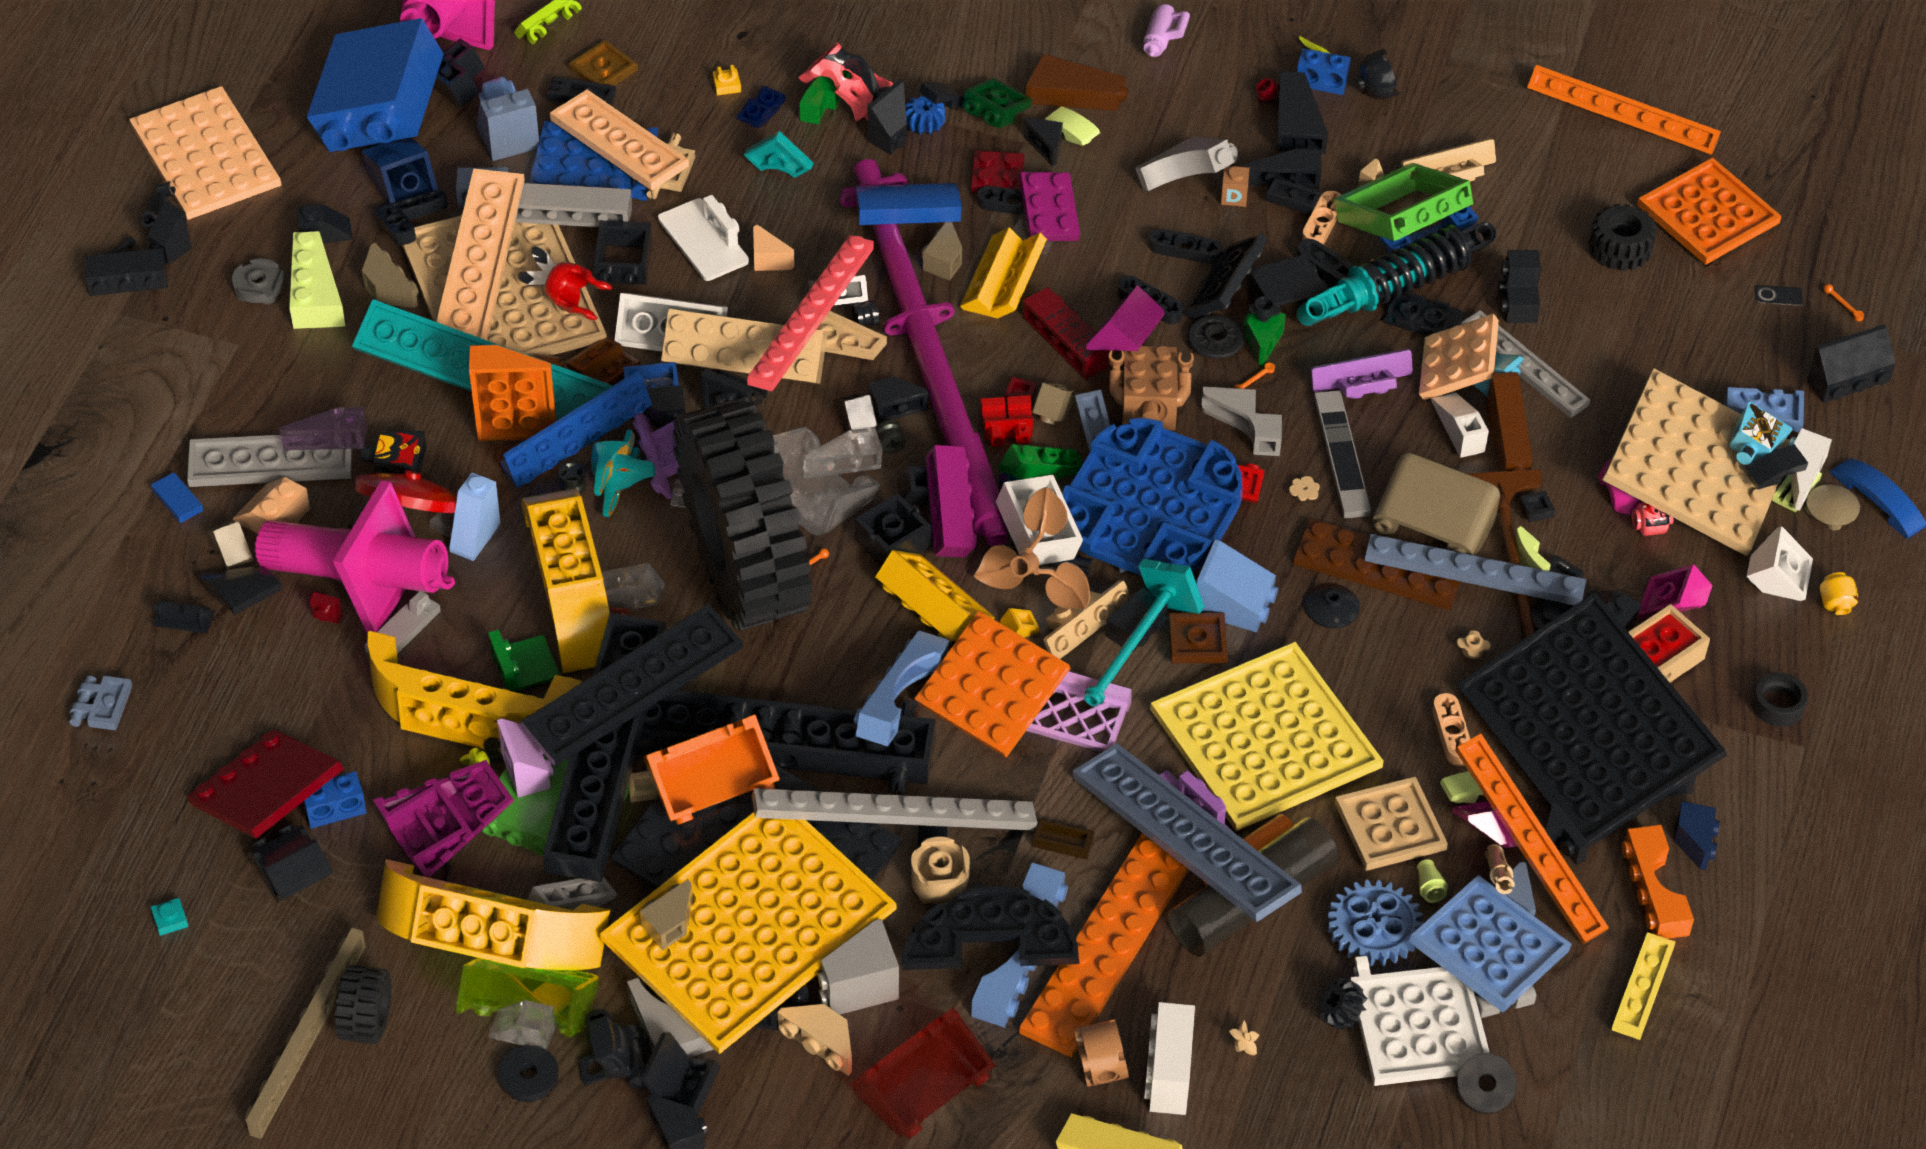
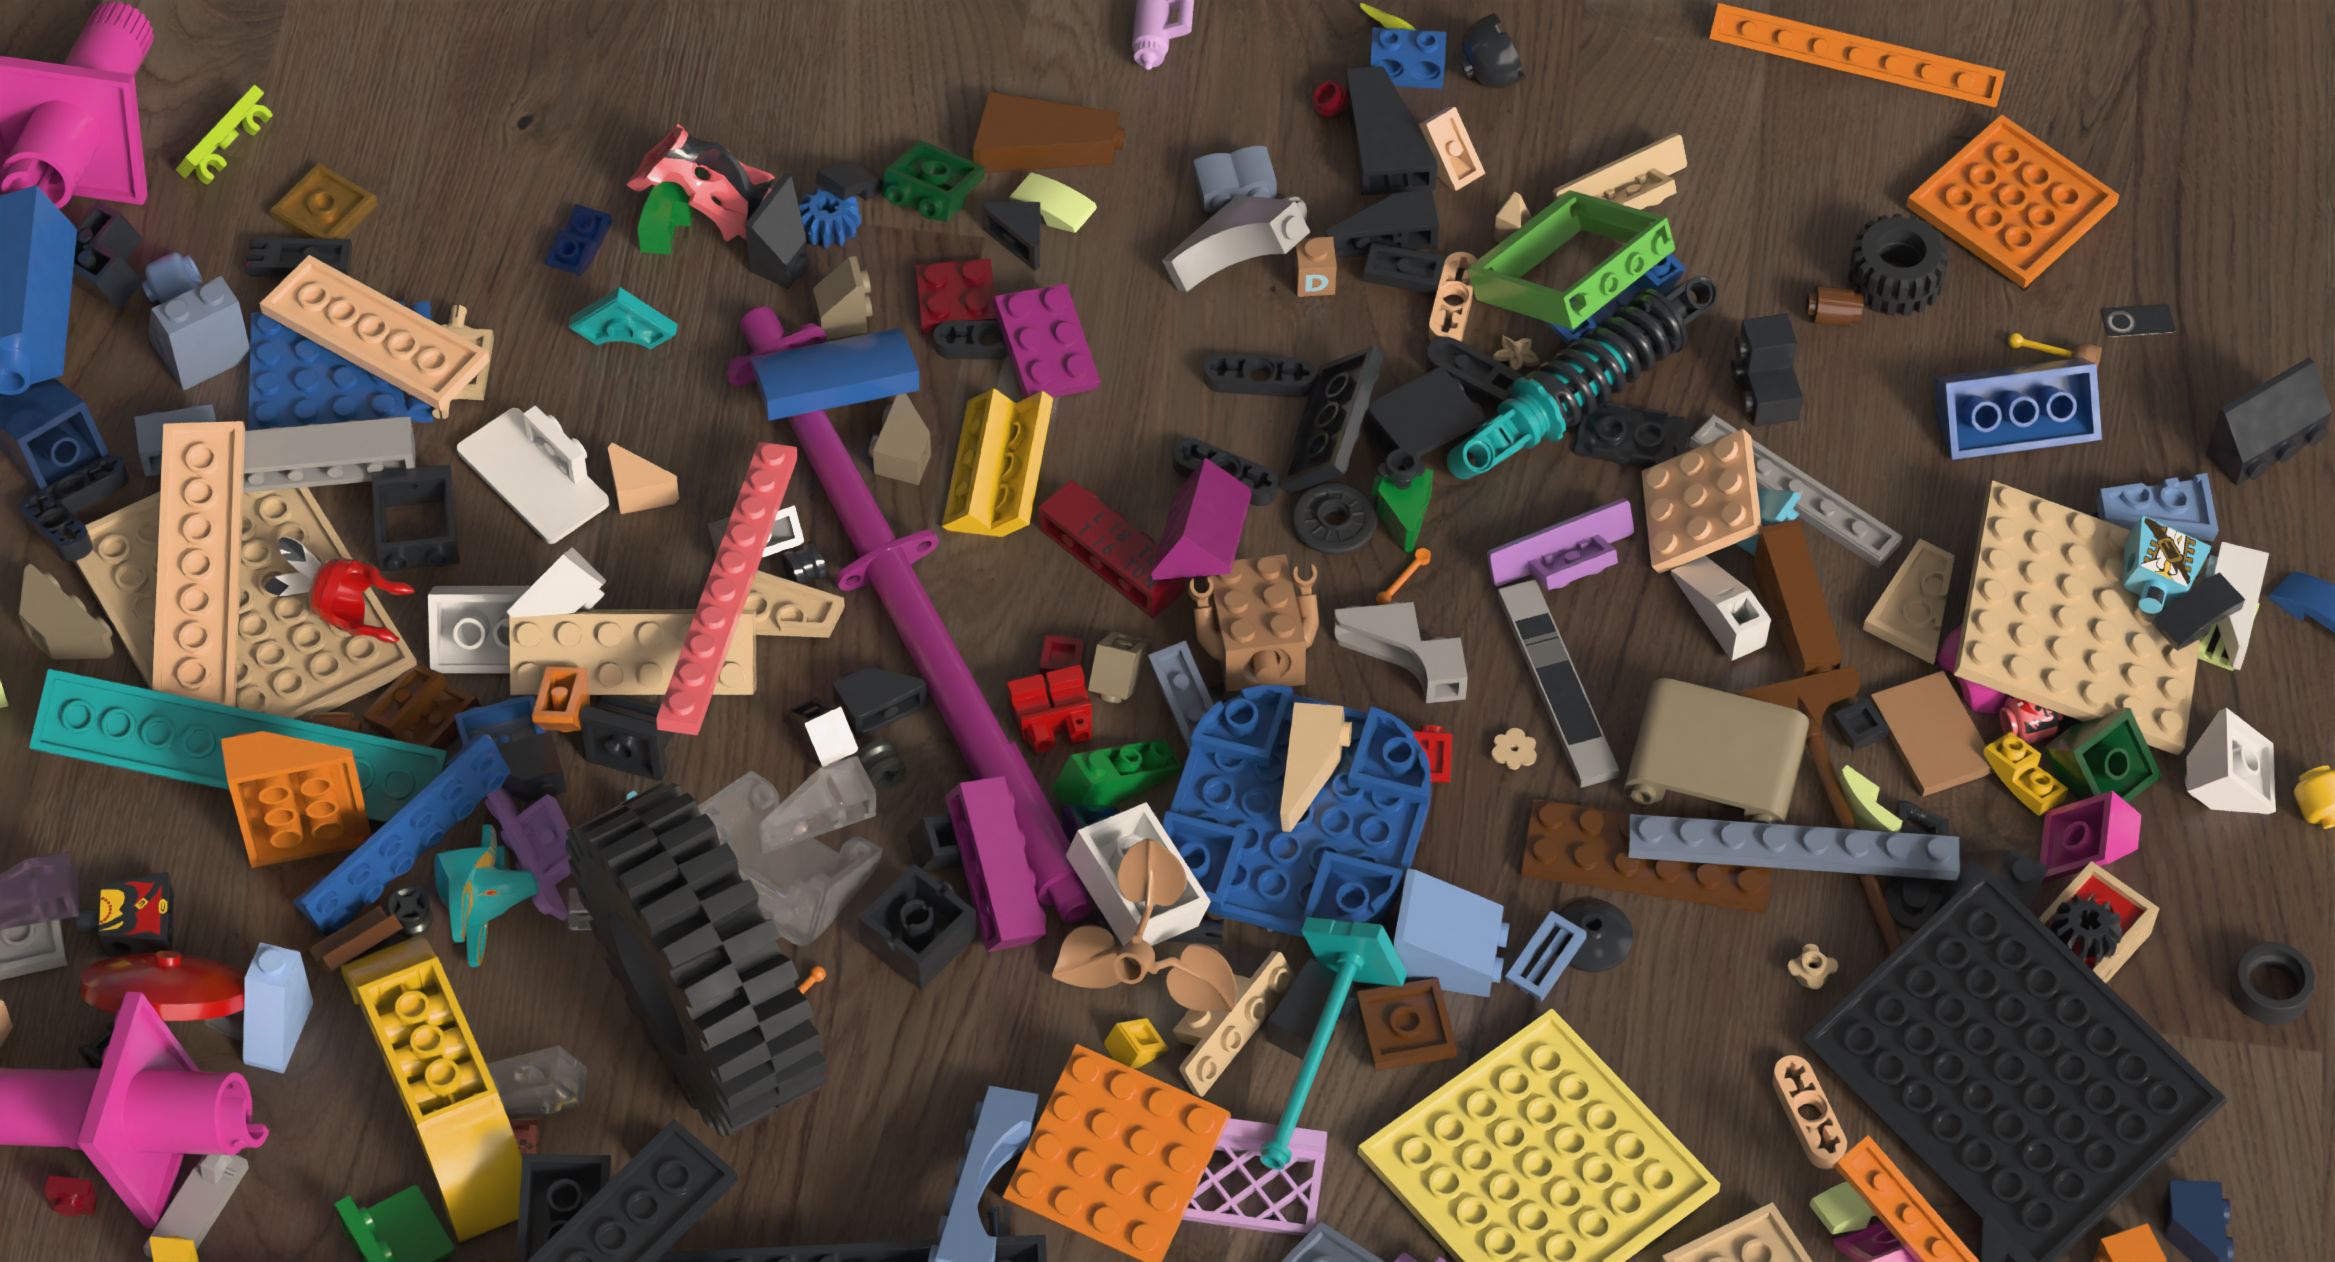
camera: 10 degrees left, 5 degrees up
(531, 486) = (352, 940): none -> reddish brown slope
(691, 364) = (561, 699): none -> orange slope
(704, 296) = (561, 589): none -> white slope
(726, 81) = (517, 204): yellow tile -> none
(921, 161) = (842, 300): none -> dark tan slope
(929, 593) = (996, 1020): yellow slope -> none
(1167, 464) = (1312, 756): none -> tan slope
(1188, 123) = (1226, 175): none -> sand blue brick
(1321, 603) = (1528, 985): none -> medium blue tile
(1340, 128) = (1452, 149): none -> light nougat slope
(1357, 256) = (1517, 352): none -> tan plant
(1574, 256) = (1834, 306): none -> reddish brown brick
(1585, 519) = (1932, 733): none -> medium nougat tile
(1589, 439) = (1914, 602): none -> tan wing
(1638, 550) = (2018, 768): none -> yellow slope
(1658, 640) = (2087, 928): none -> black gear
(1685, 334) = (2018, 408): none -> blue slope
(1696, 544) = (2104, 757): none -> dark green slope
(1736, 311) = (2086, 351): none -> hinge
(1832, 505) = (2285, 653): dark tan dish -> none
(1857, 315) = (2258, 336): orange hinge -> none

